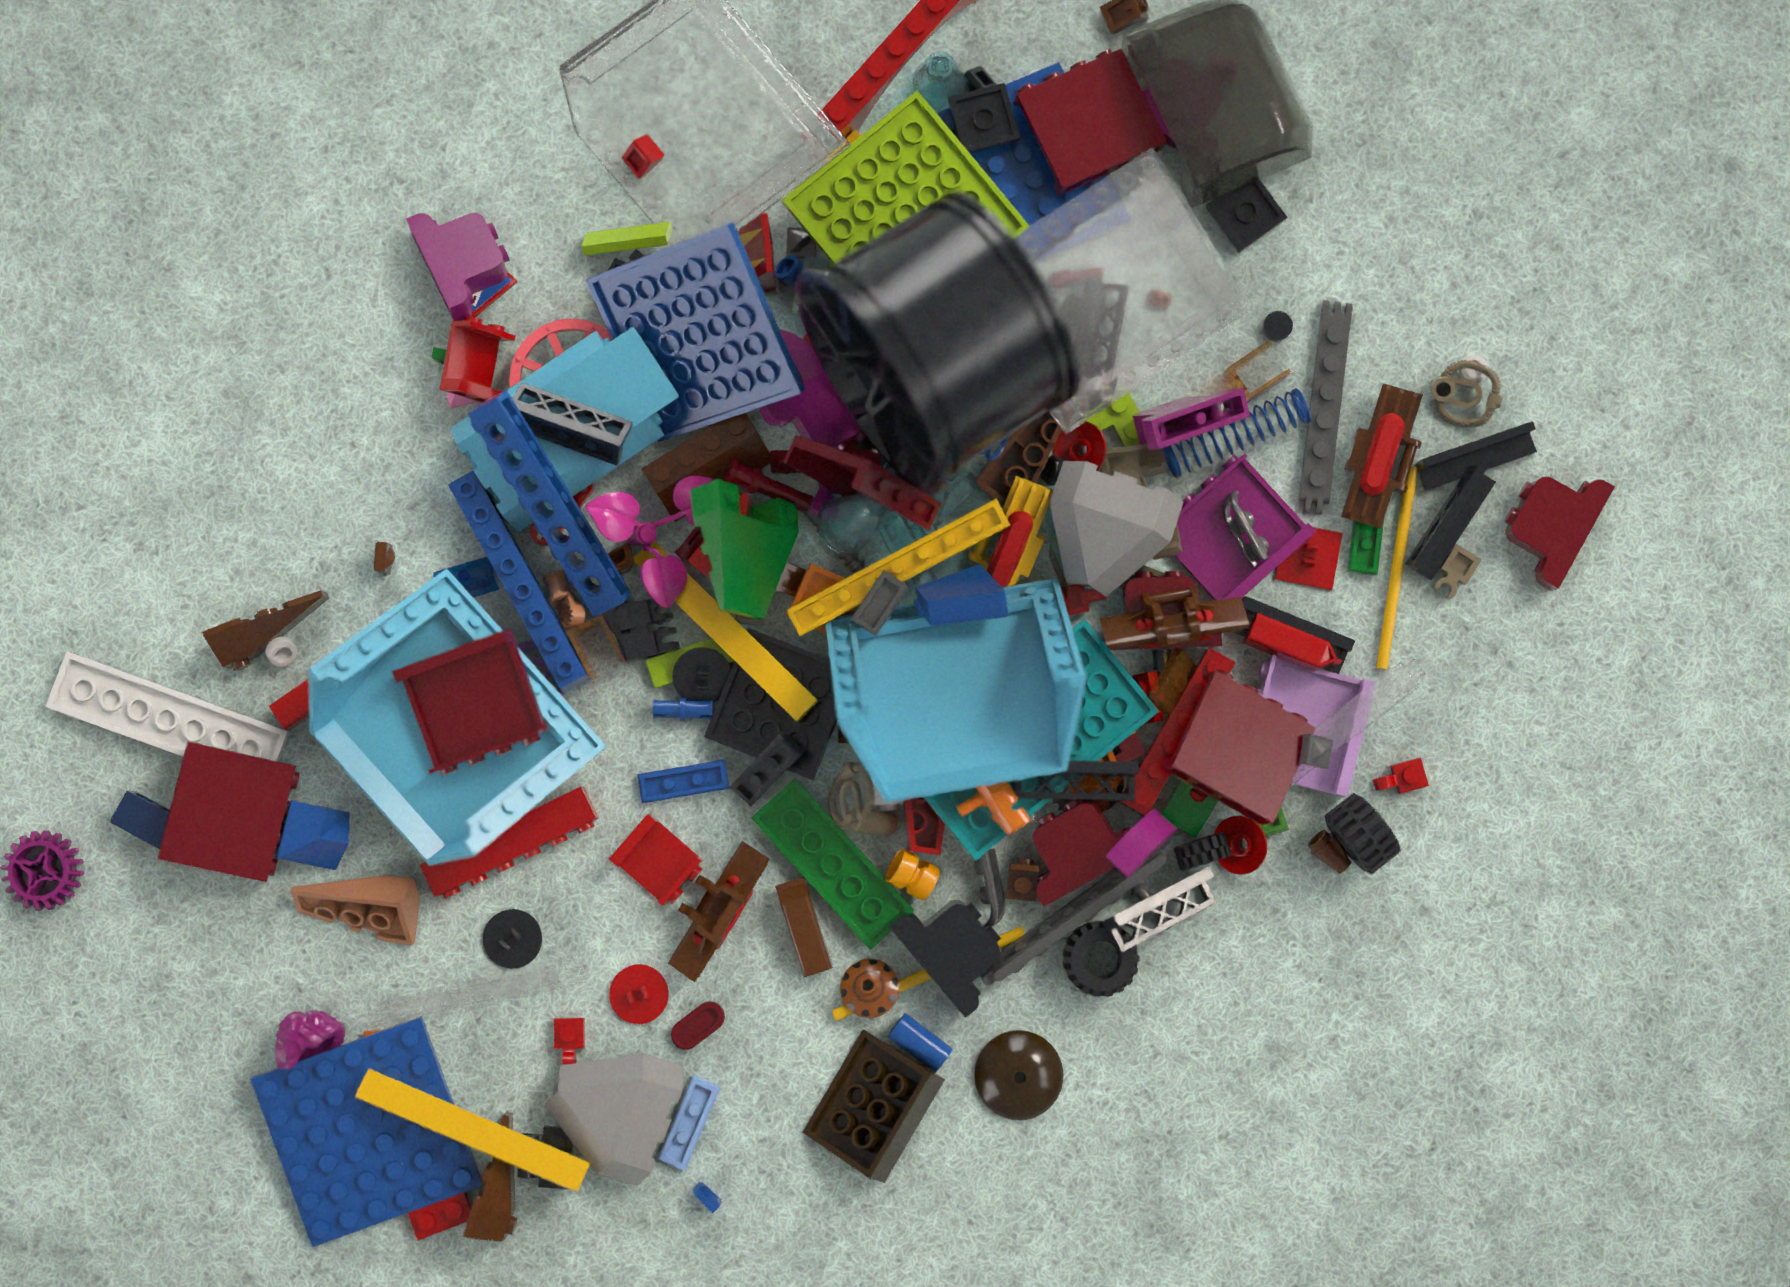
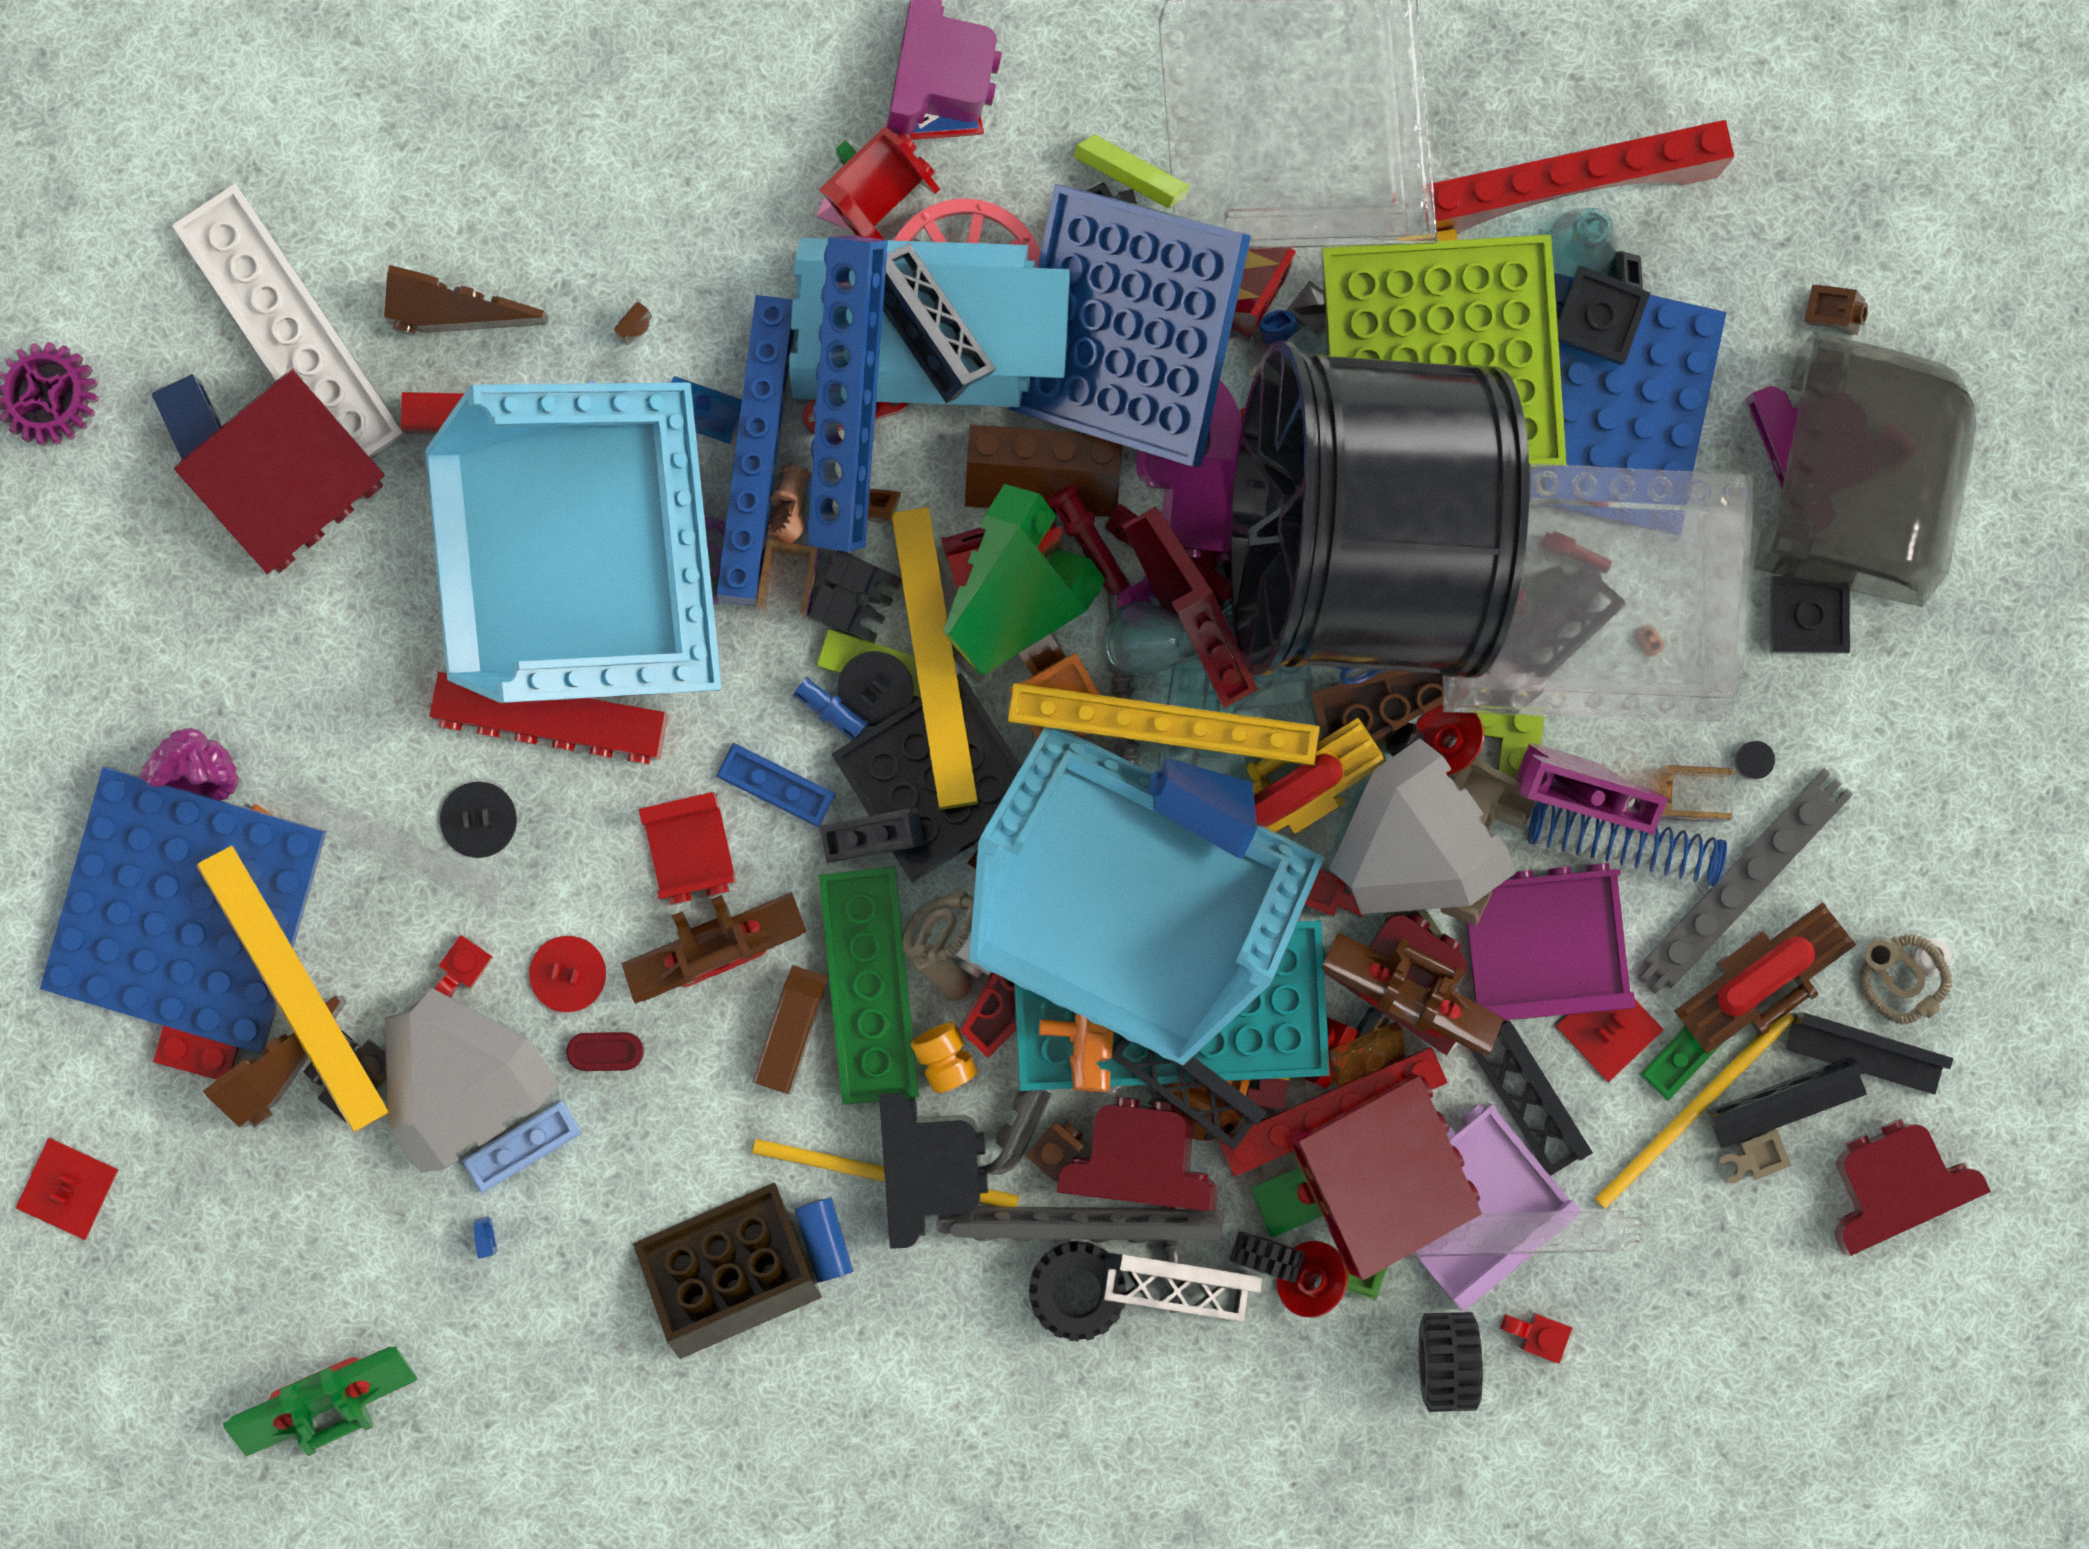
camera: 35 degrees right, 0 degrees up
(281, 651) = (456, 344): white tile -> none
(314, 835) = (352, 561): blue slope -> none
(374, 903) = (362, 678): nougat wedge -> none
(473, 701) = (616, 541): dark red panel -> none
(615, 520) = (902, 459): dark pink plant -> none
(642, 156) = (1211, 95): red slope -> none
(877, 1000) = (810, 1162): dark orange dish -> none
(880, 603) = (1117, 747): dark grey tile -> none
(1014, 1053) = (910, 1322): dark brown dish -> none
(1058, 571) = (1330, 851): reddish brown sticker -> none
(1090, 119) = (1713, 397): dark red panel -> none
(1141, 842) = (1208, 1199): magenta arch -> none
(1243, 523) = (1564, 942): dark grey piece -> none
(1290, 644) = (1520, 1106): red piece -> none
(1316, 751) = (1463, 1238): dark grey tile -> none
(1328, 850) = (1402, 1355): reddish brown cone -> none

